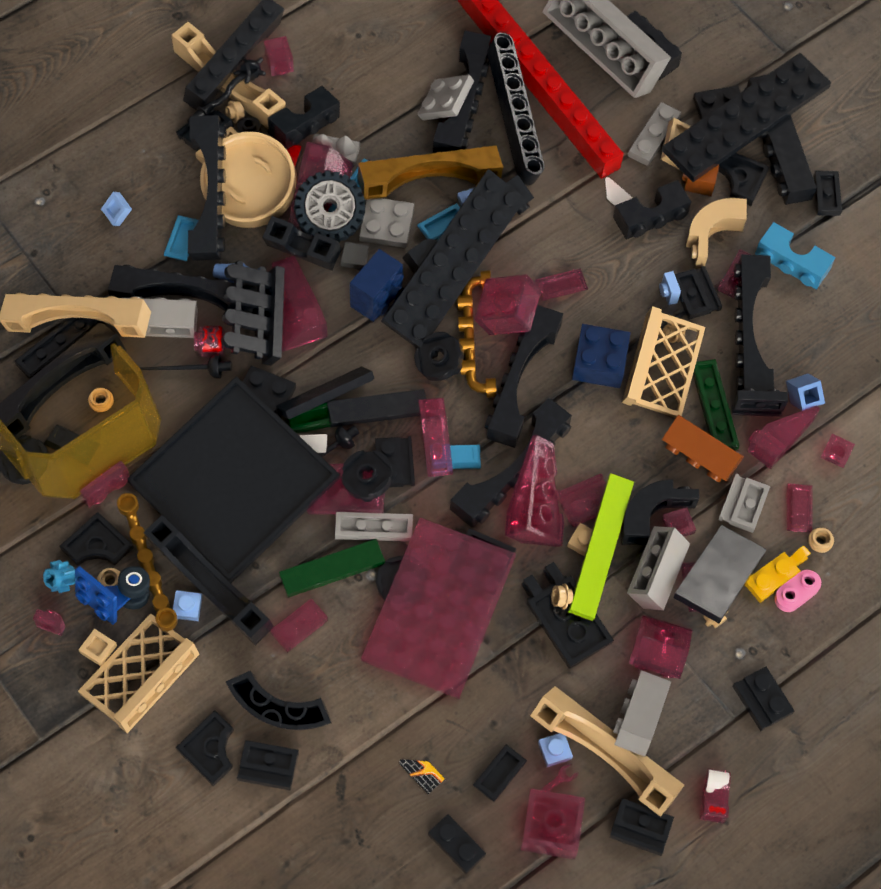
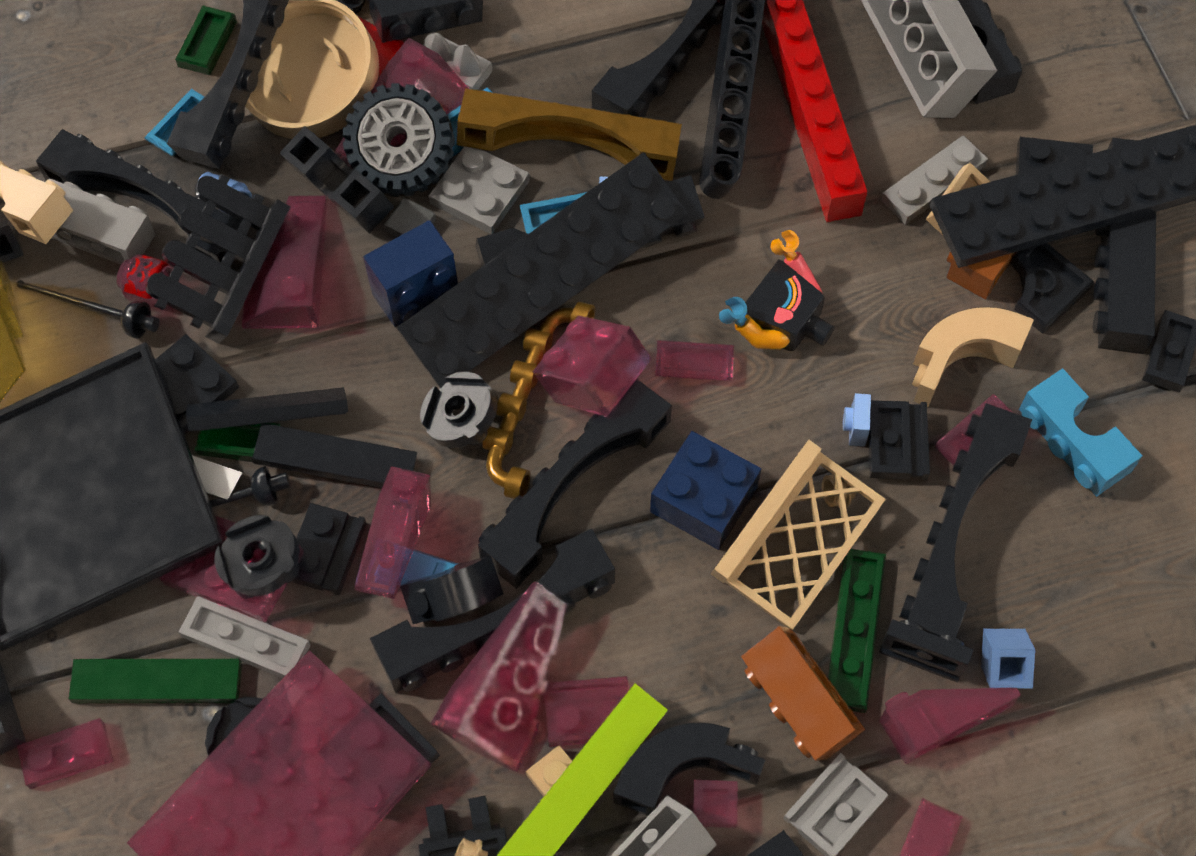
camera: 25 degrees right, 0 degrees up
(116, 209) = (111, 54): light blue plate -> none
(170, 181) = (206, 40): none -> dark green tile
(445, 97) = (640, 34): light grey plate -> none
(484, 459) = (452, 591): none -> black brick
(600, 234) = (783, 305): none -> torso
(615, 193) = (840, 254): white sticker -> none
(636, 219) = (852, 299): black arch -> none
(837, 450) = (1026, 773): clear pink plate -> none

